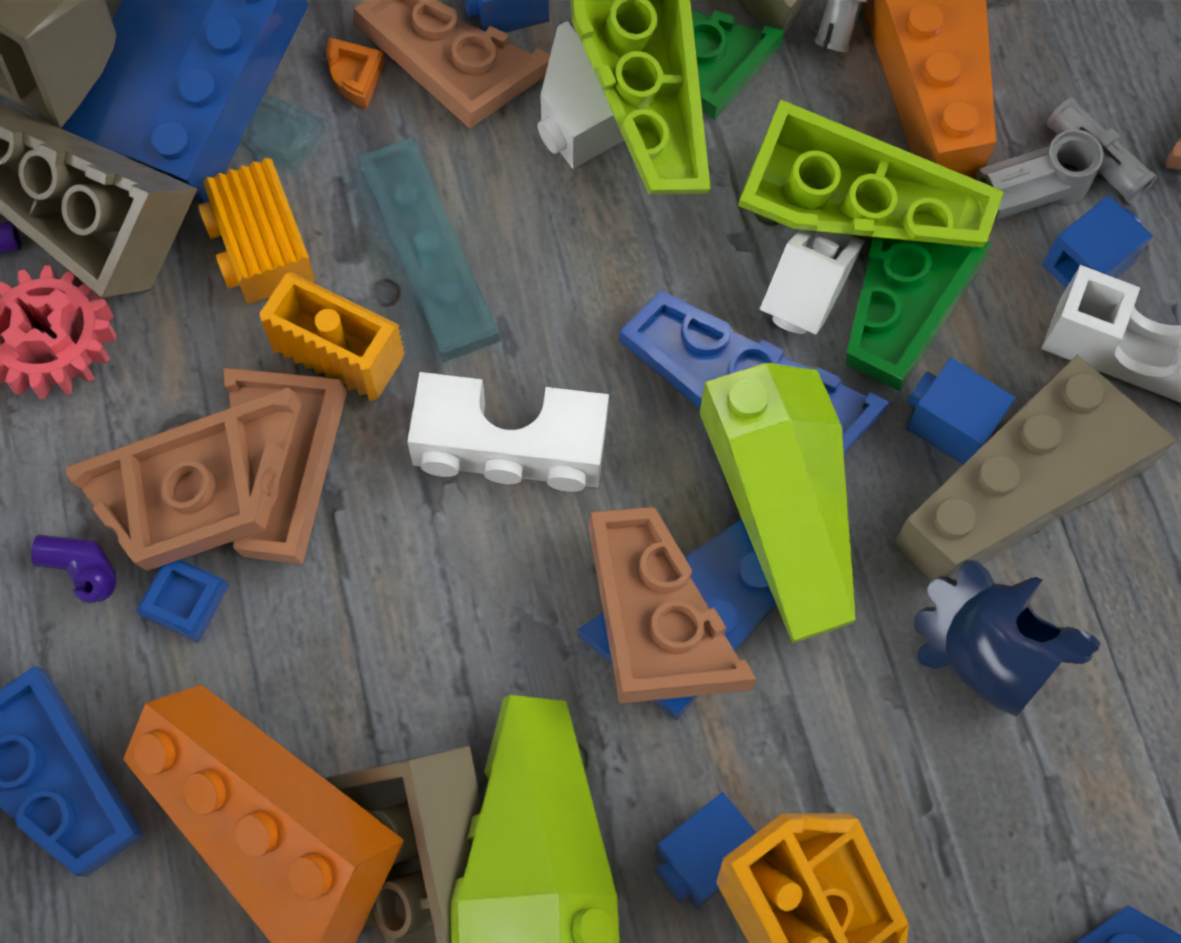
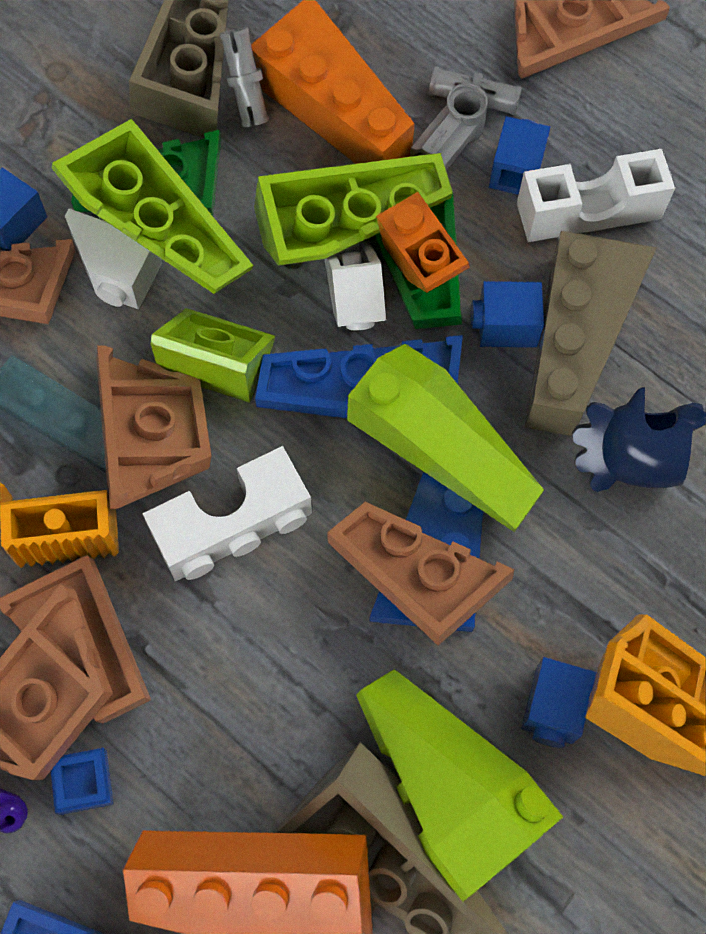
camera: 35 degrees left, 0 degrees up
(490, 291) = (150, 427): none -> nougat wing
(611, 255) = (213, 350): none -> lime slope
(905, 271) = (420, 244): none -> orange slope

